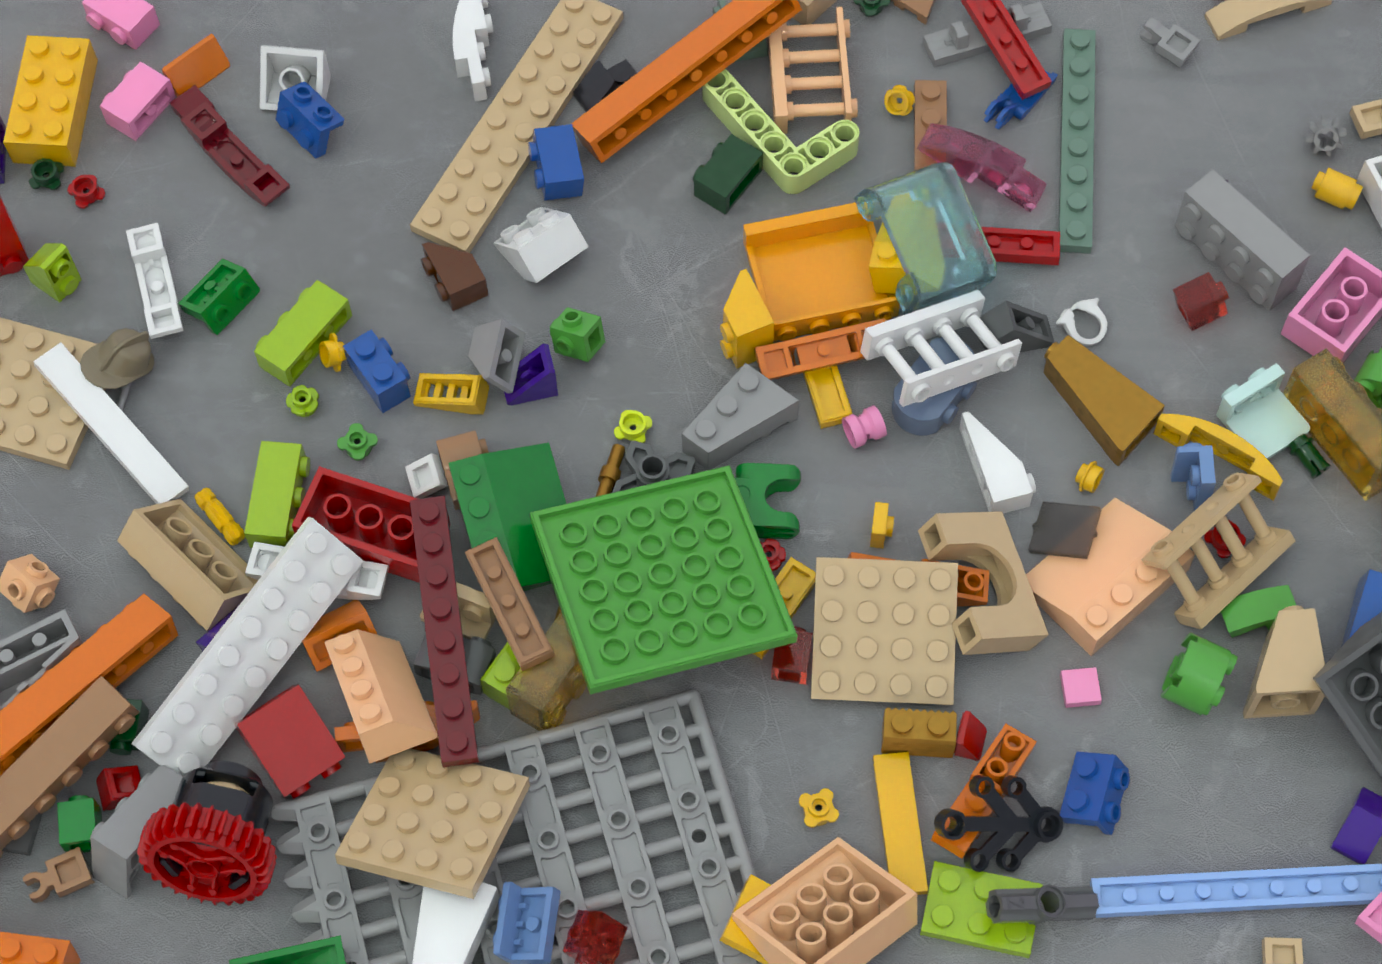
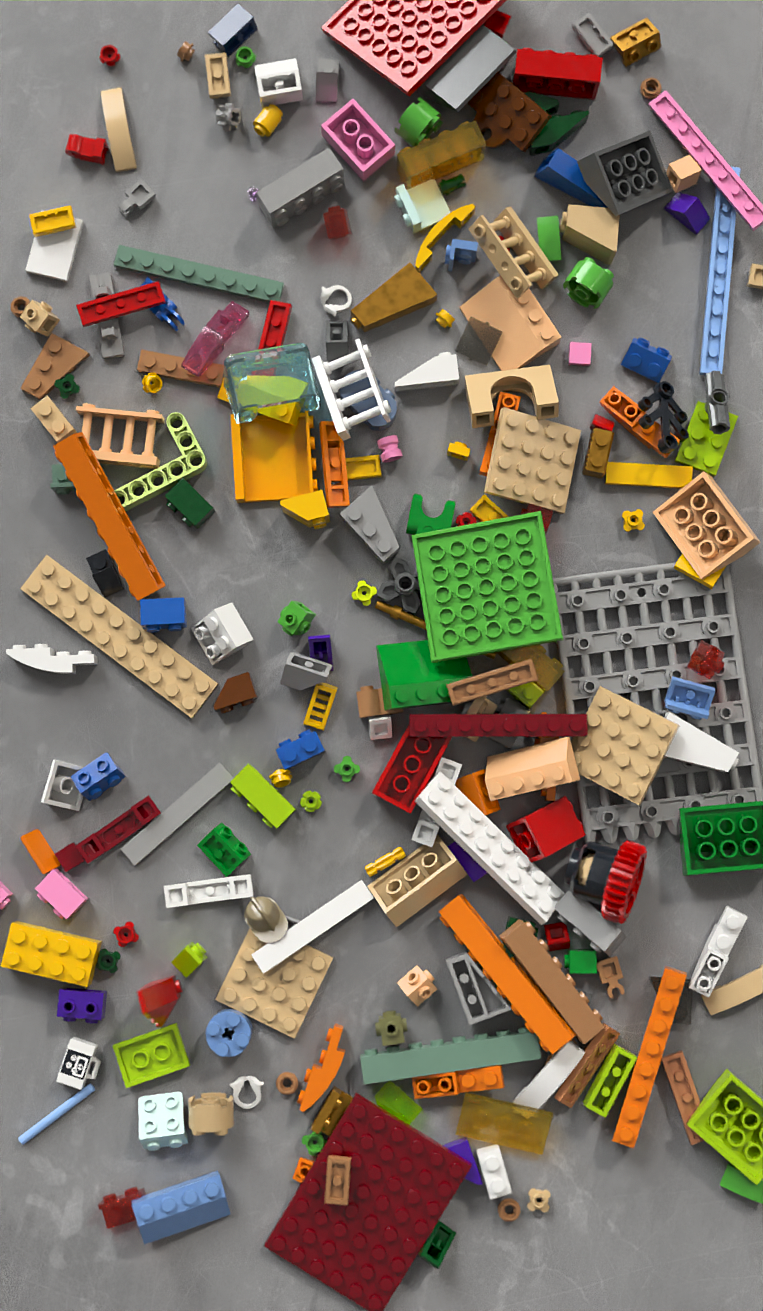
camera: 80 degrees left, 20 degrees up
(266, 229) = (177, 814): none -> light grey tile
(276, 493) = (378, 822): lime brick -> none

